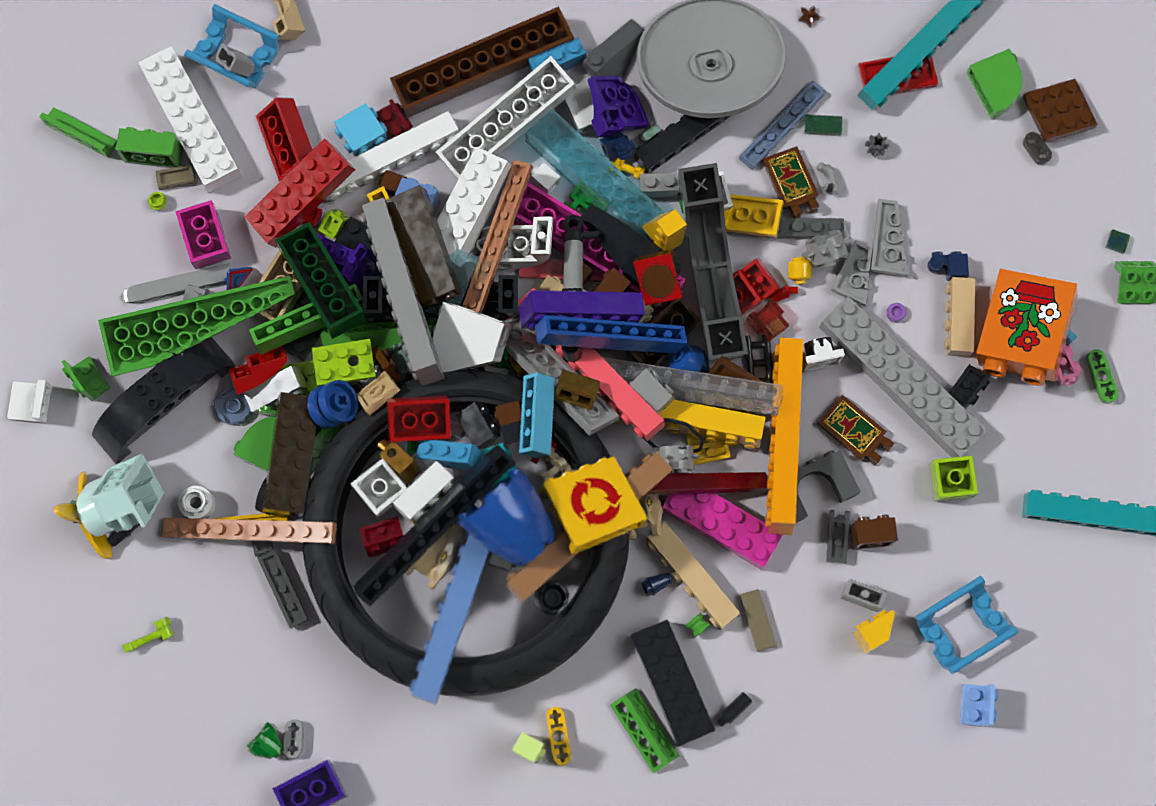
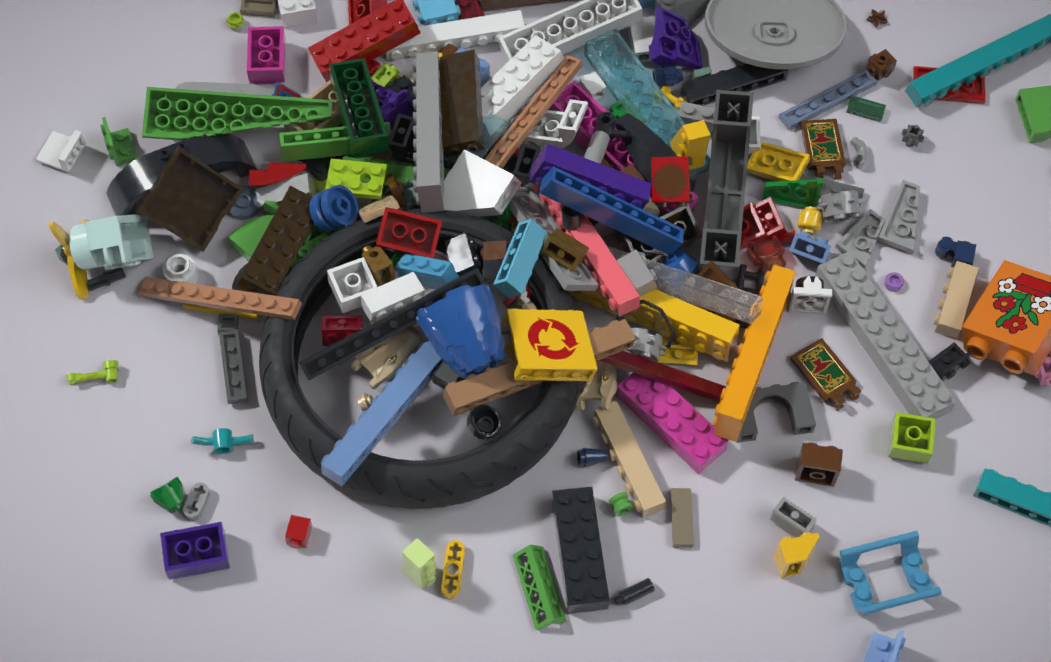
camera: 15 degrees right, 15 degrees down
(183, 429) = (190, 199): none -> dark brown tile
(298, 670) = (222, 440): none -> teal piece
(401, 743) = (298, 532): none -> red brick
(431, 608) = (365, 401): none -> tan plate
(779, 244) = (795, 192): none -> green wing
(808, 302) = (810, 248): none -> medium blue brick
(827, 73) = (881, 65): none -> reddish brown brick
(837, 538) = (782, 464): dark grey hinge -> none

